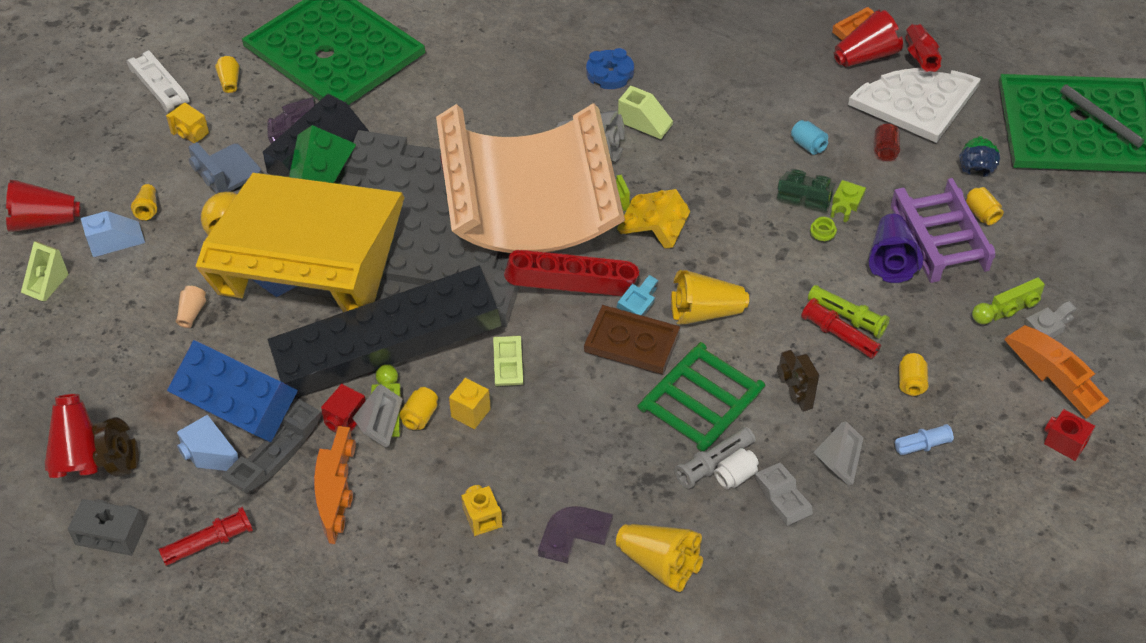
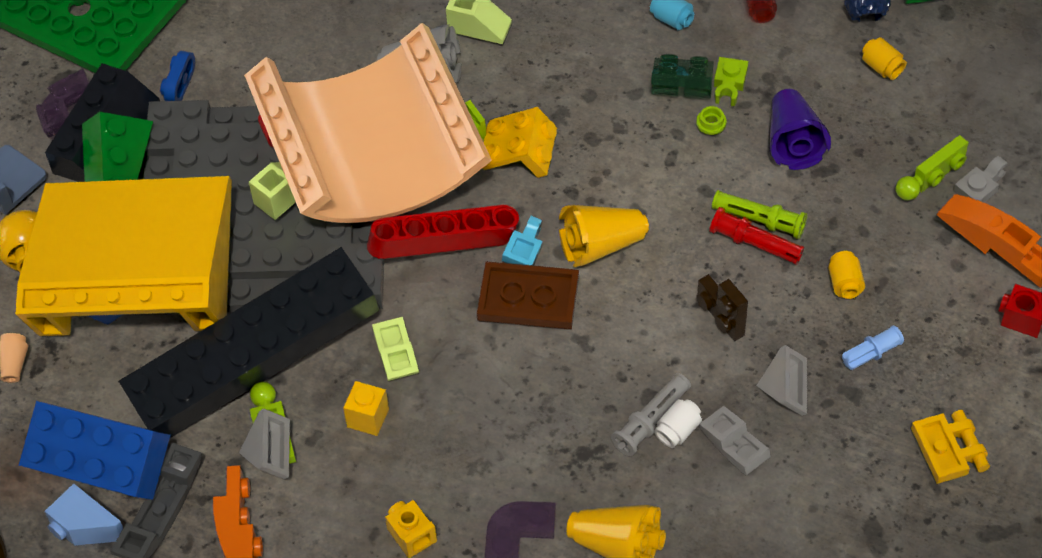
camera: 10 degrees left, 5 degrees up
(342, 408) = (224, 443): red brick -> none
(388, 116) = (178, 79): none -> blue plate
(419, 408) = (310, 425): yellow brick -> none
(434, 212) = (271, 190): none -> yellowish green slope
(720, 423) = (648, 373): green bar -> none
(960, 212) = (843, 137): medium lavender fence -> none
(968, 537) = (942, 450): none -> yellow plate

